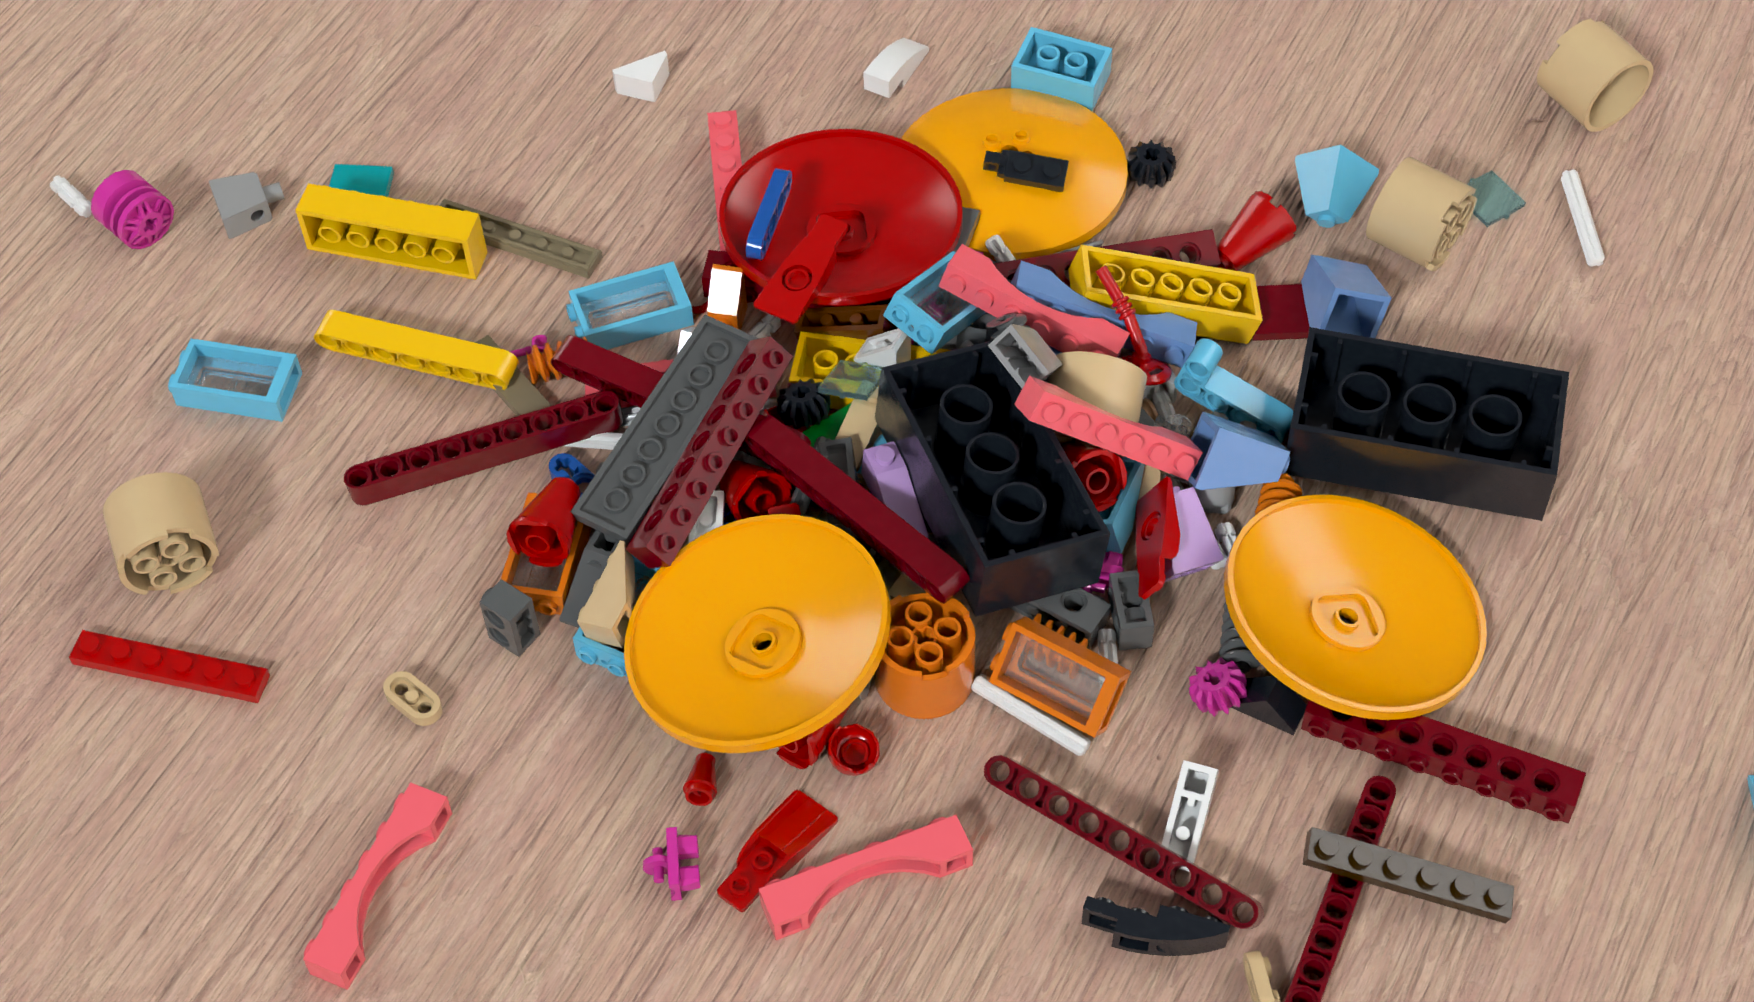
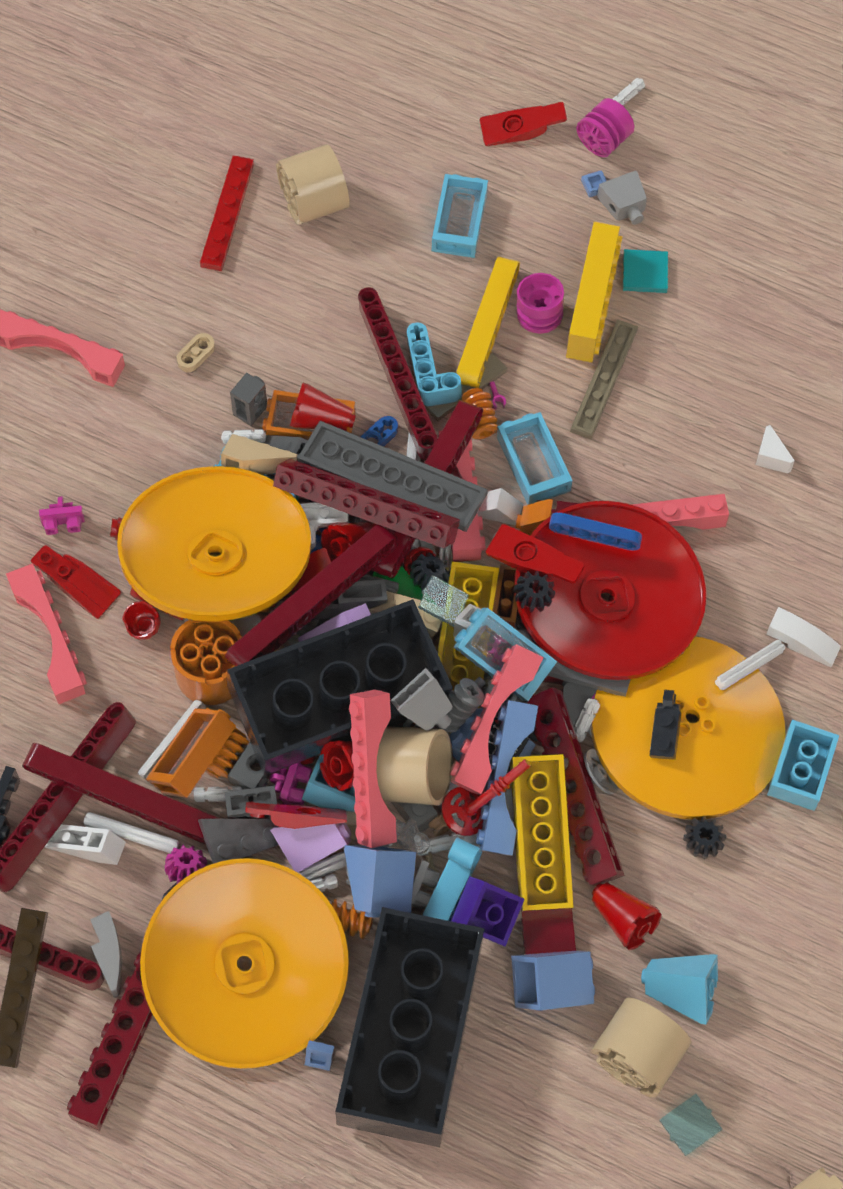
camera: 85 degrees right, 10 degrees up
(94, 310) = (521, 123): none -> red piece
(210, 237) = (592, 181): none -> medium blue tile
(400, 286) = (540, 303): none -> dark pink wheel
(443, 420) = (432, 388): none -> medium azure beam
(564, 632) = (258, 435): none -> white axle
(855, 270) = (525, 594): none -> black gear
(935, 106) = (749, 665): none -> white axle
(1128, 748) = (115, 791): none -> dark red beam
(1168, 761) = (131, 832): none -> white axle
(1181, 625) = (236, 837): none -> flat silver wing
(1267, 353) = (488, 908): none -> dark purple brick
(1341, 776) = (108, 951): none -> light grey slope
(1456, 538) = (319, 1055): none -> medium blue plate

